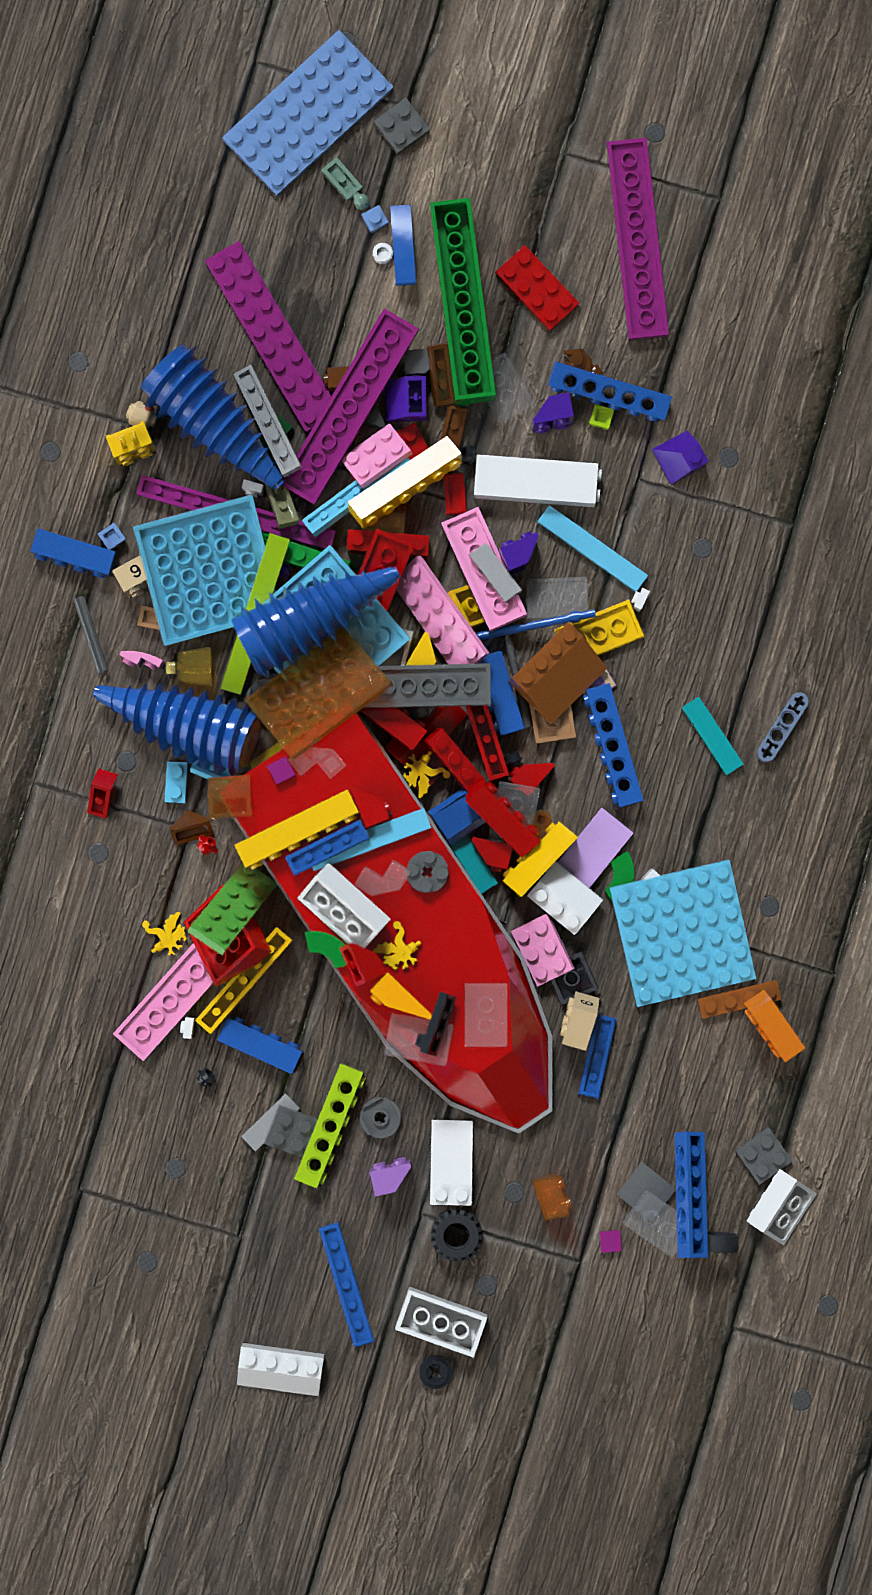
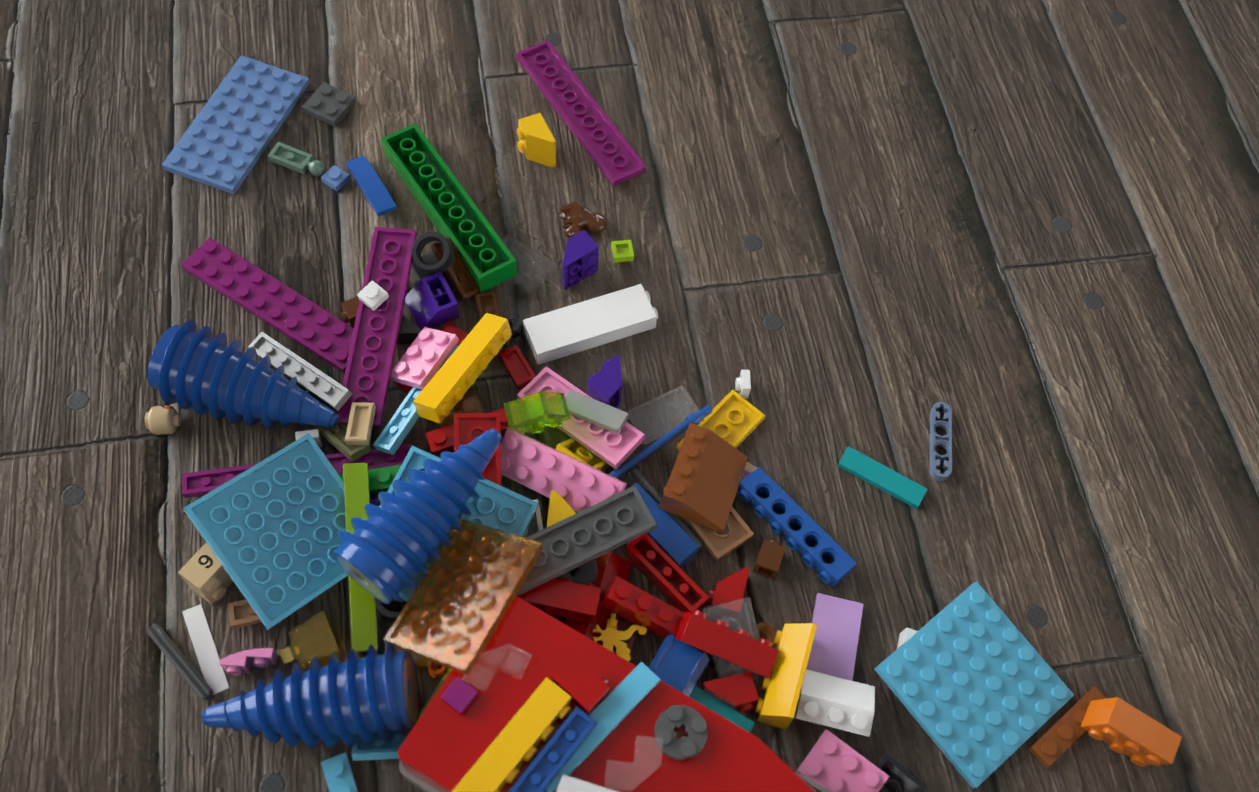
camera: 30 degrees left, 25 degrees down
(73, 553) = (129, 582): blue brick -> none
(112, 536) = (169, 548): medium blue plate -> none
(112, 631) = (205, 648): none -> white sticker
(131, 444) = (159, 446): yellow hinge -> none
(230, 797) = (411, 753): clear orange slope -> none
(298, 498) = (360, 423): none -> tan tile
(355, 379) = (373, 295): none -> white plate
(382, 253) = (354, 201): white tile -> none
(409, 356) = (422, 241): none -> black tyre
(446, 555) = (537, 412): none -> clear neon green brick
(513, 759) = (704, 584): black plate -> none
(537, 288) = (510, 177): red plate -> none
(575, 262) = (536, 140): none -> yellow slope
(578, 762) = (769, 559): none -> reddish brown brick
(592, 548) = (675, 361): medium azure tile -> none
(622, 871) = (876, 651): green tile -> none
(660, 401) = (666, 215): blue brick -> none
(680, 457) = (712, 255): dark purple slope -> none

